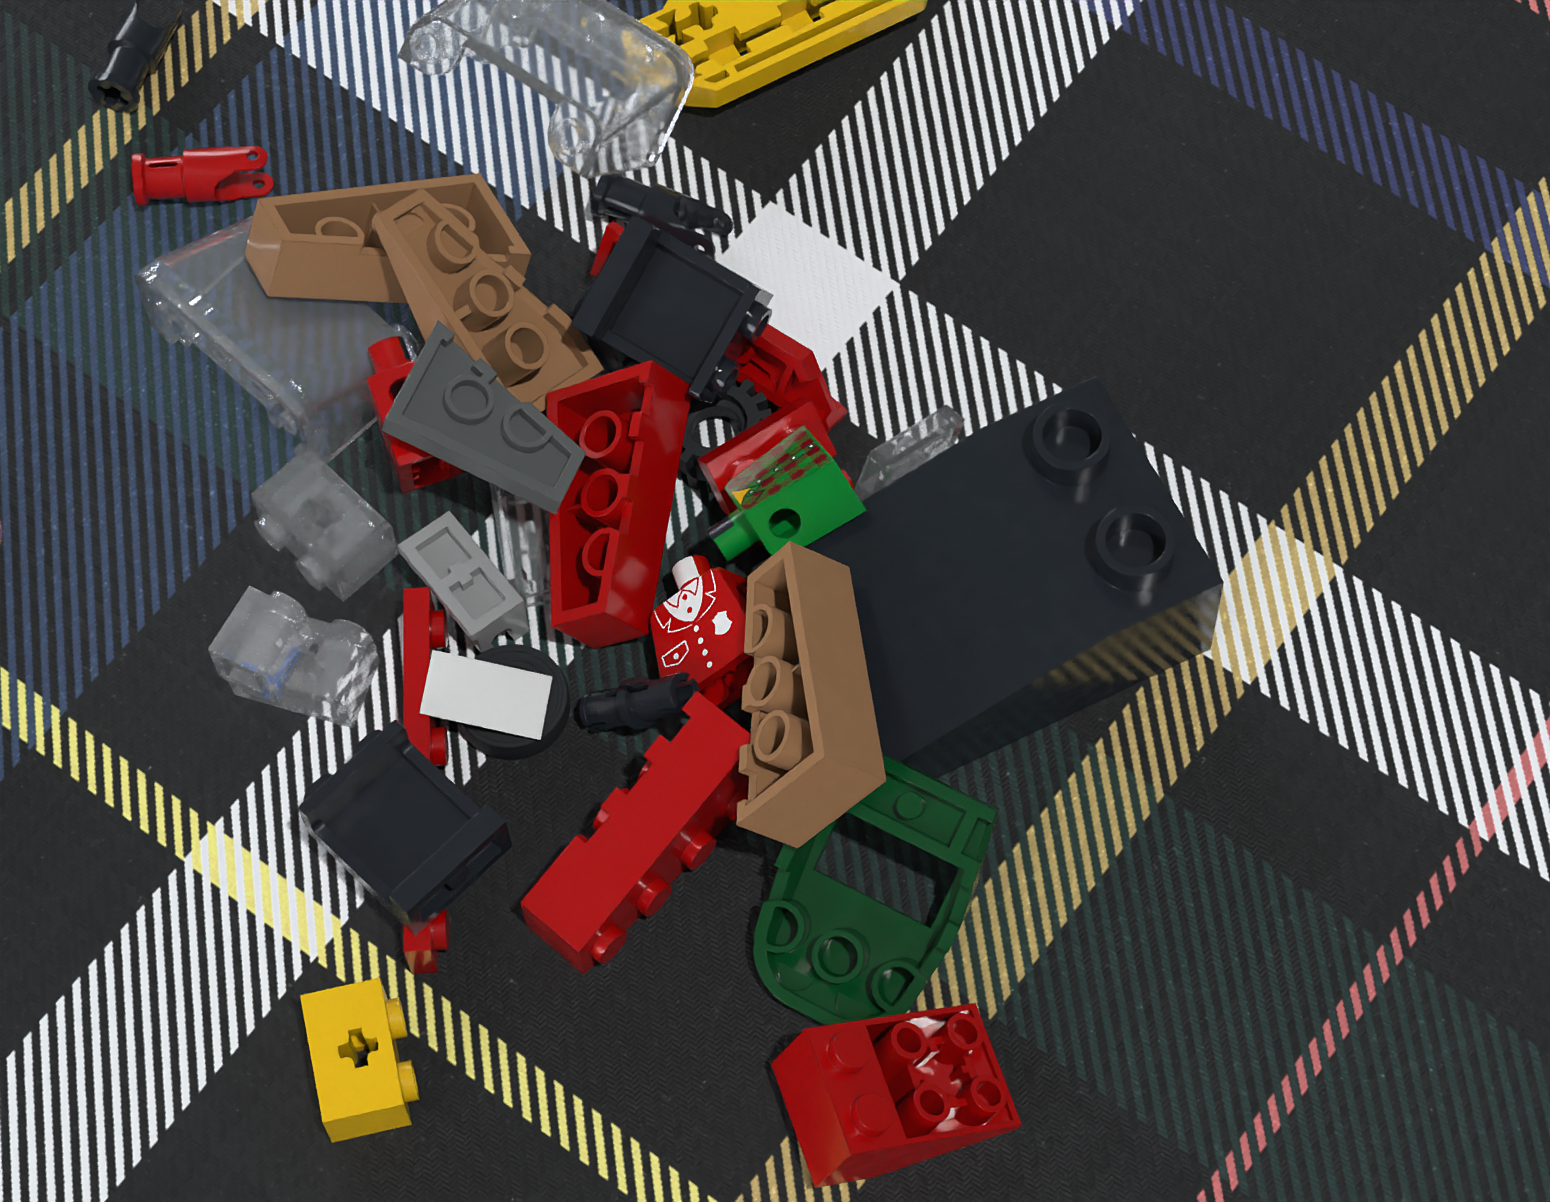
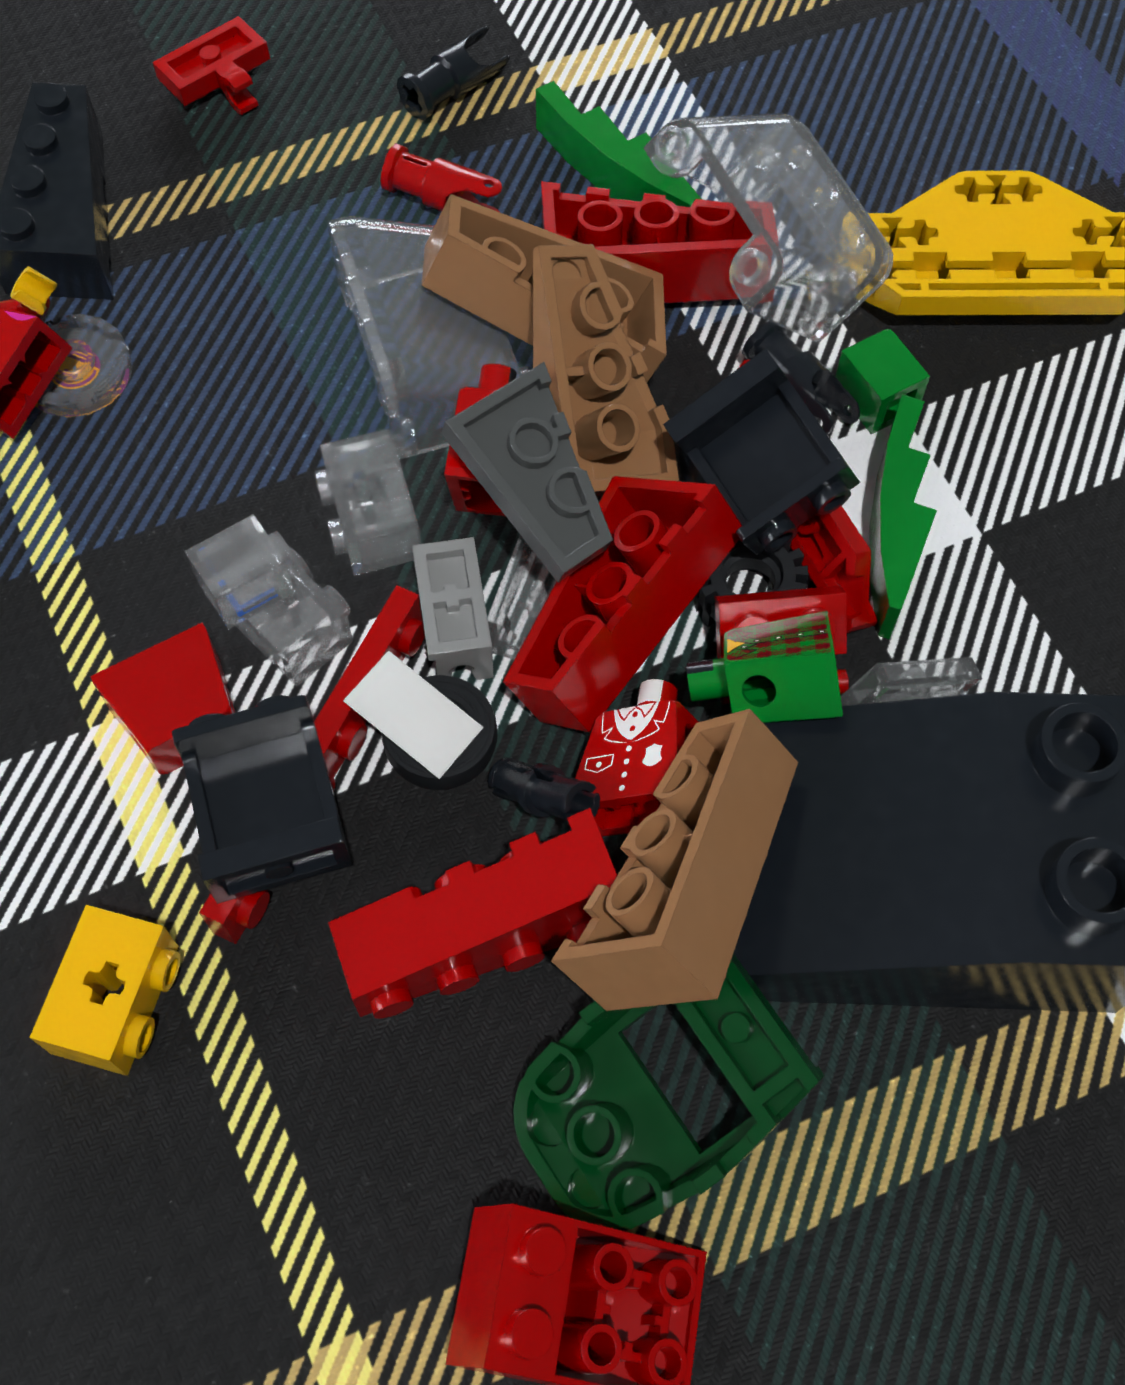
camera: 25 degrees right, 0 degrees up
(251, 794) = (165, 692): none -> red torso
(362, 75) = (602, 152): none -> green slope
(487, 131) = (683, 243): none -> red wedge
(736, 179) = (877, 376): none -> green panel
(819, 312) = (897, 523): none -> green slope

